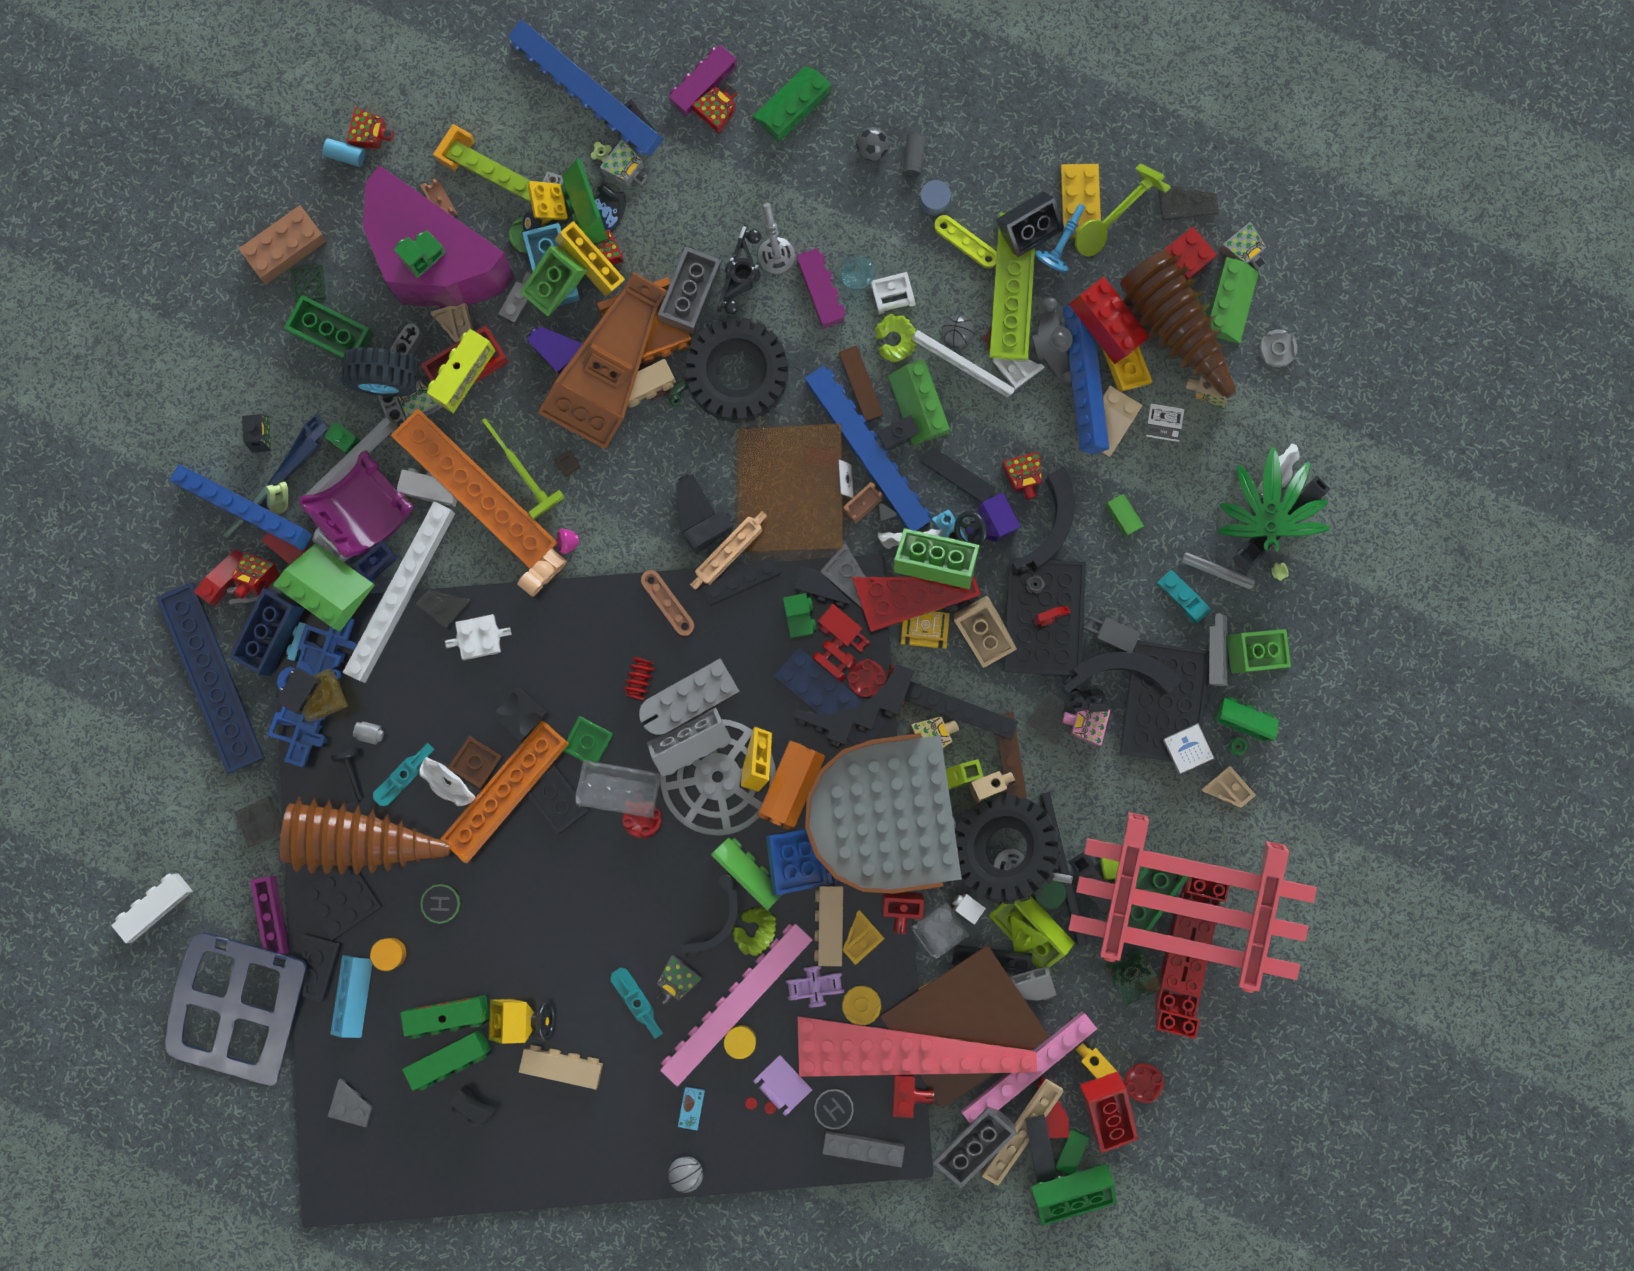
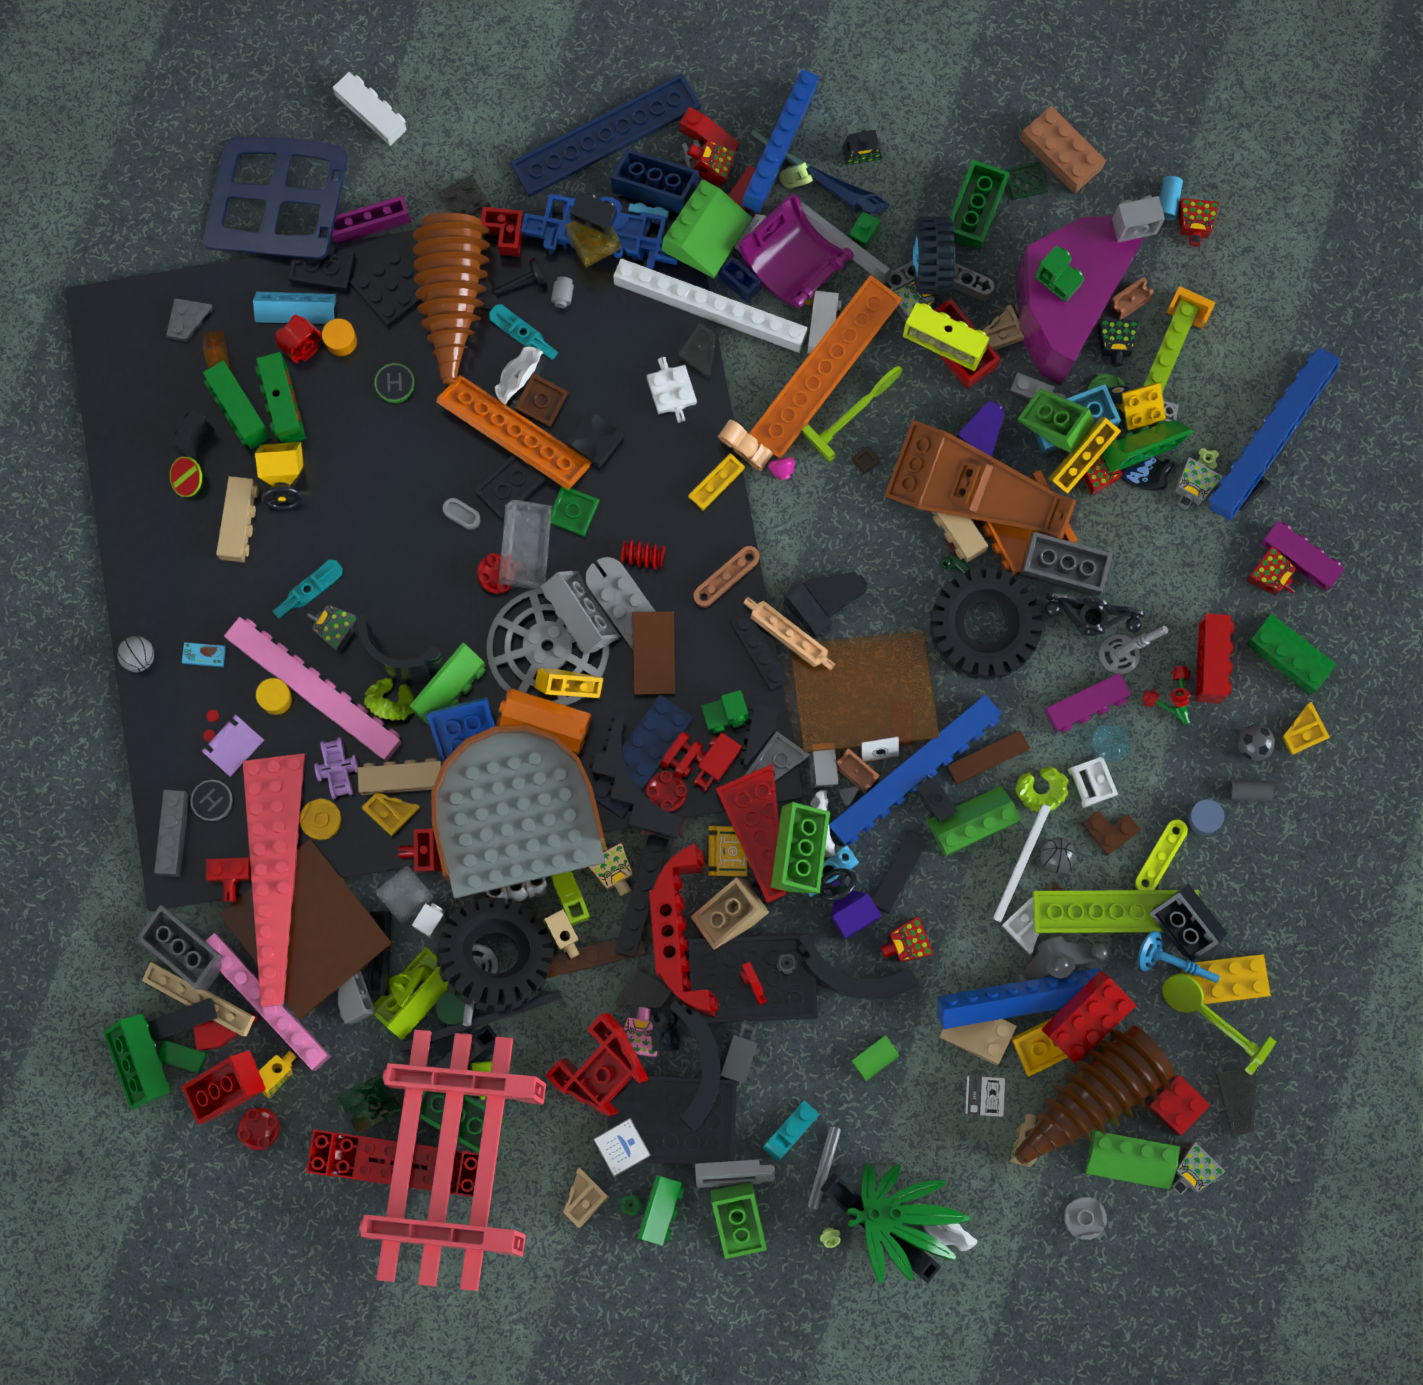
camera: 85 degrees right, 5 degrees down
(294, 779) = (507, 226): none -> red brick
(373, 173) = (1138, 218): none -> light grey brick
(386, 994) = (298, 339): none -> red brick
(386, 1078) = (215, 348): none -> clear orange slope
(478, 216) = (1117, 339): none -> black torso
(512, 1115) = (185, 476): none -> red piece
(574, 603) = (716, 482): none -> yellow plate
(578, 848) = (461, 513): none -> light grey tile
(735, 677) = (653, 653): none -> reddish brown tile
(791, 170) = (1213, 658): none -> red brick
(826, 203) = (1179, 696): none -> red plant
(858, 533) = (823, 769): none -> light grey hinge
(864, 100) = (1305, 731): none -> yellow wing
(943, 285) = (1109, 836): none -> reddish brown plate
(1035, 685) = (667, 898): none -> red slope
(1122, 757) = (604, 1071): none -> red wedge

